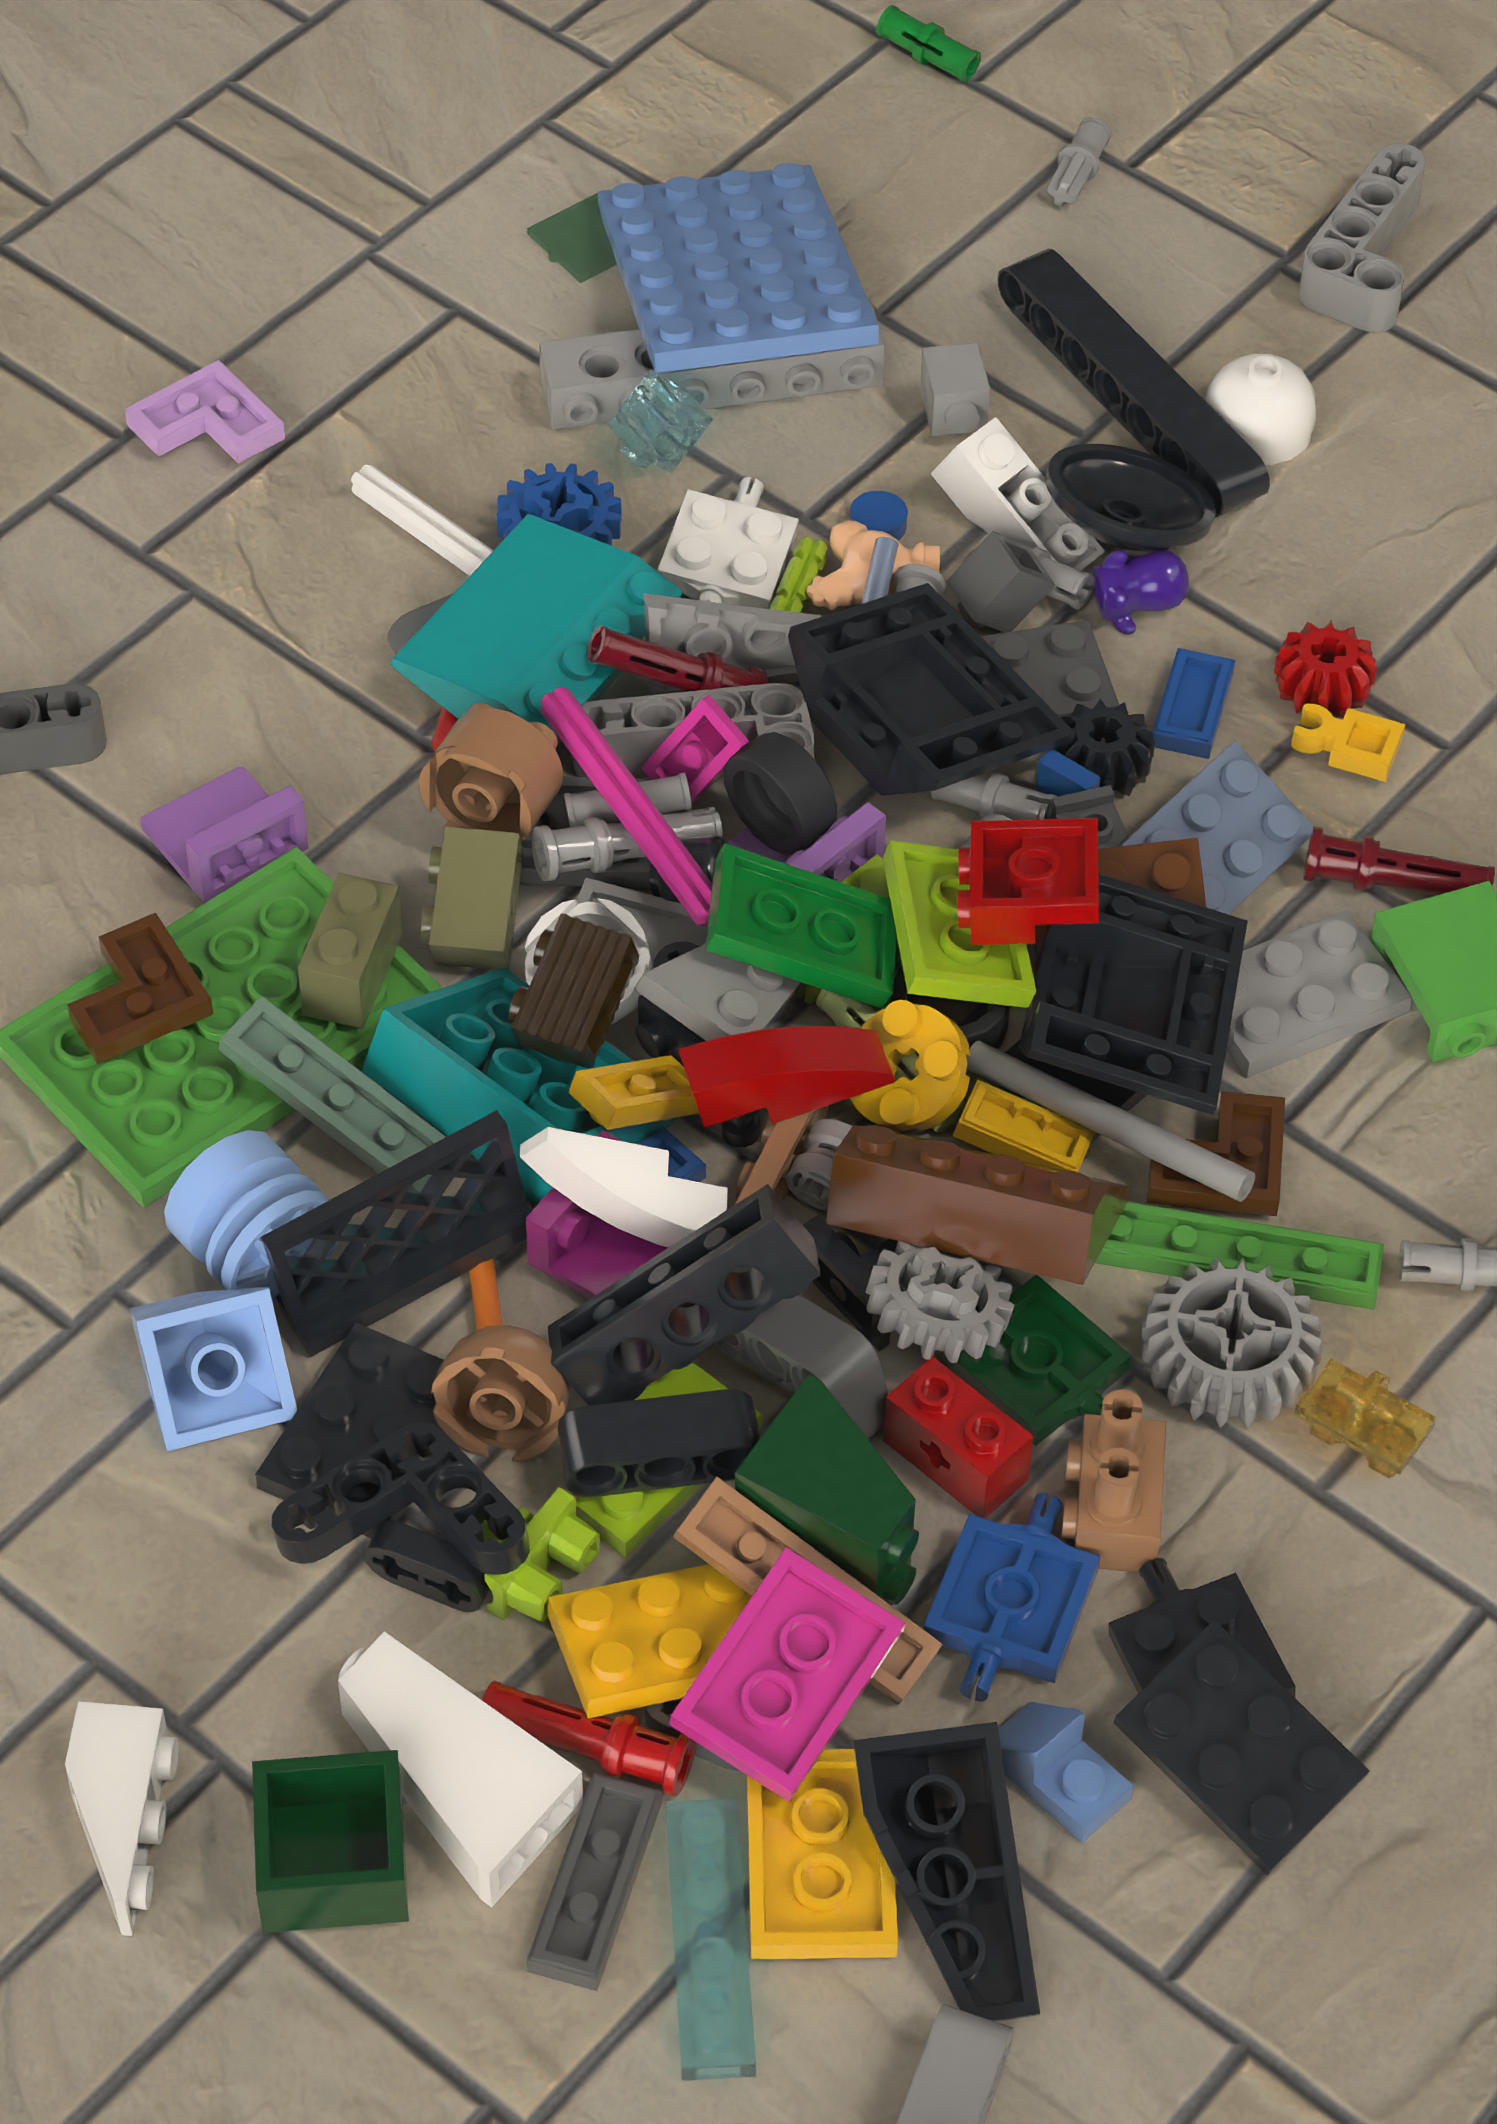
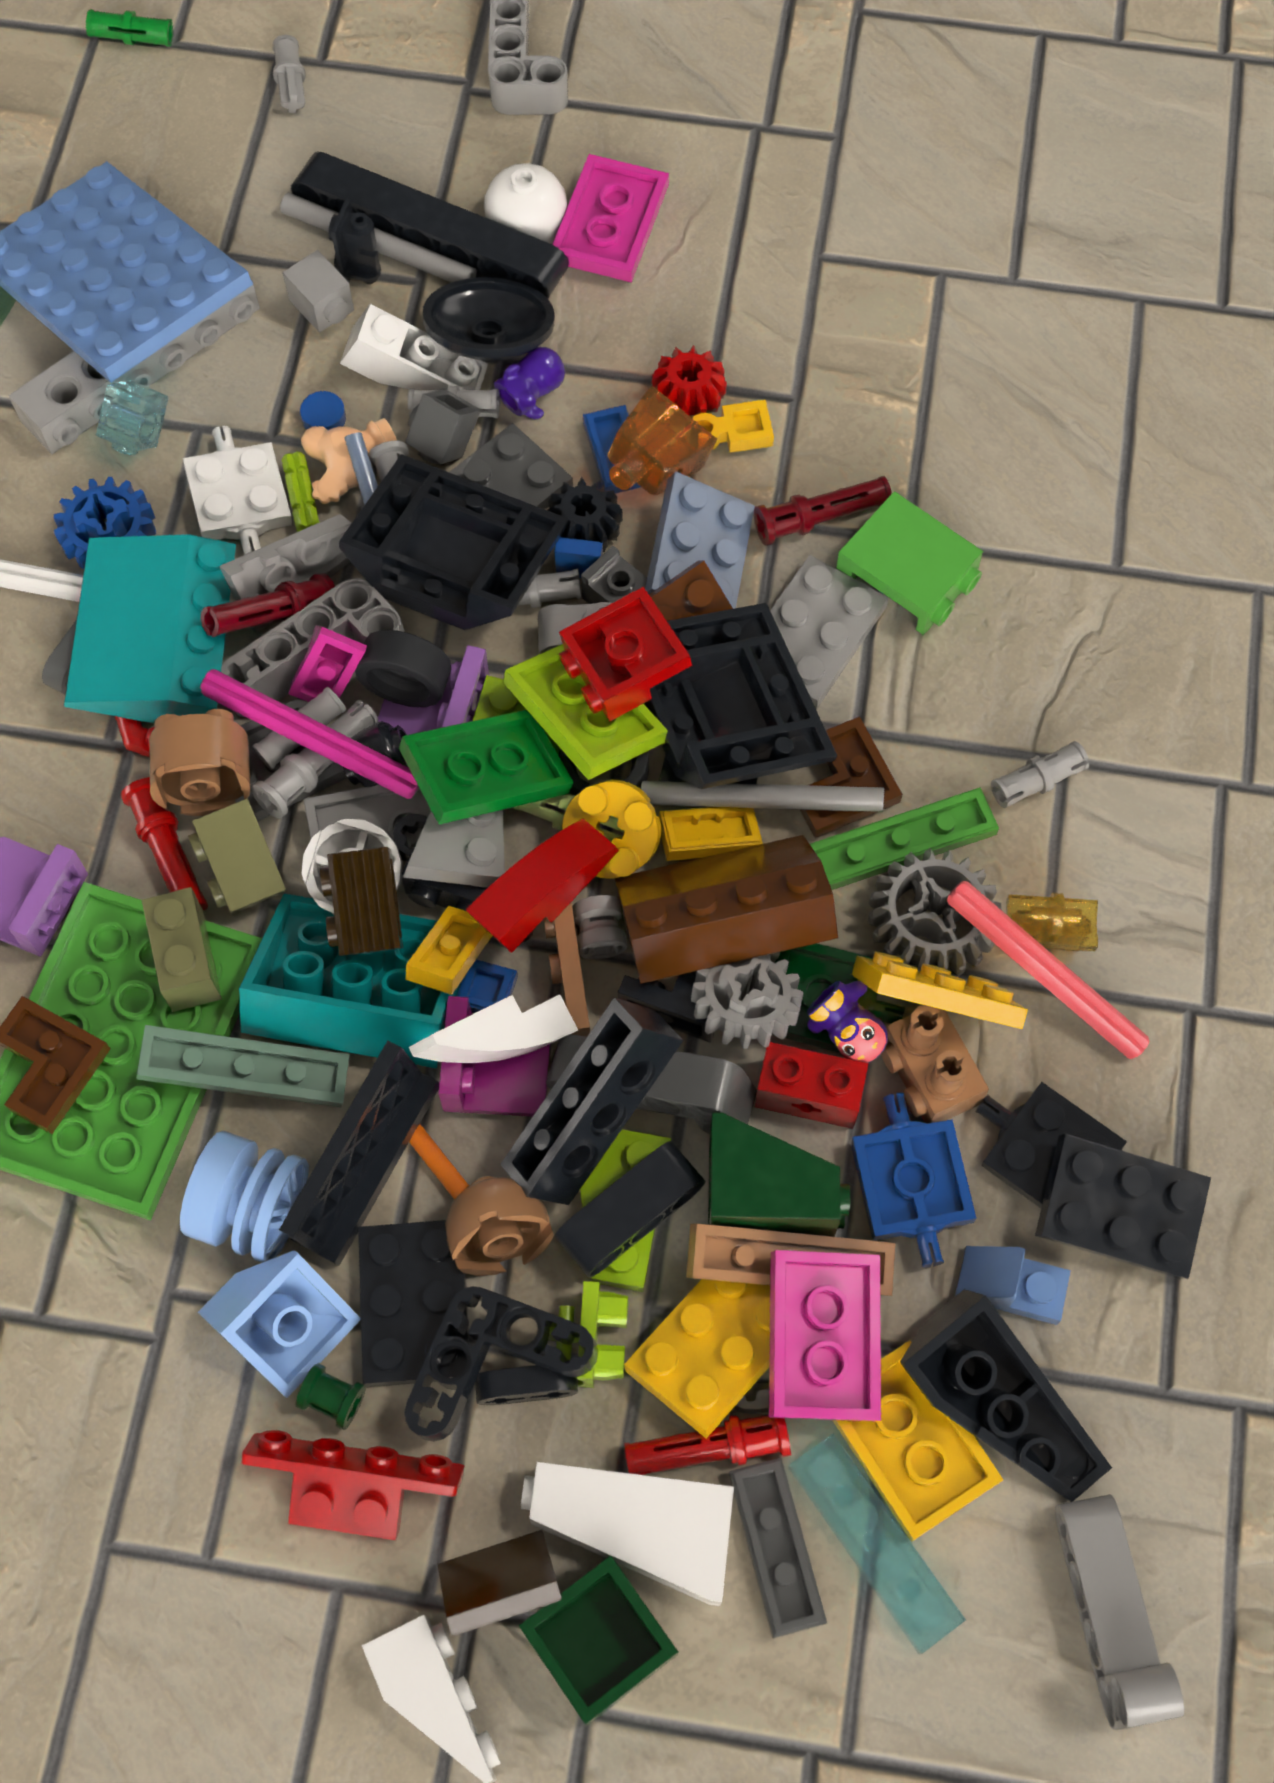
camera: 30 degrees left, 15 degrees up
(170, 1565) = (350, 1486): none -> red bracket
(213, 1466) = (330, 1396): none -> dark green bush
(261, 1724) = (498, 1582): none -> dark brown tile
(410, 838) = (158, 829): none -> red pin
(1021, 358) = (354, 245): none -> black hinge
(1036, 1383) = (850, 1026): none -> animal
(1060, 368) = (386, 243): none -> light grey piece
(1167, 1395) = (939, 989): none -> yellow plate
(1237, 700) = (657, 443): none -> clear orange torso
(1322, 1459) = (1048, 970): none -> coral axle
(1355, 461) = (611, 217): none -> dark pink plate

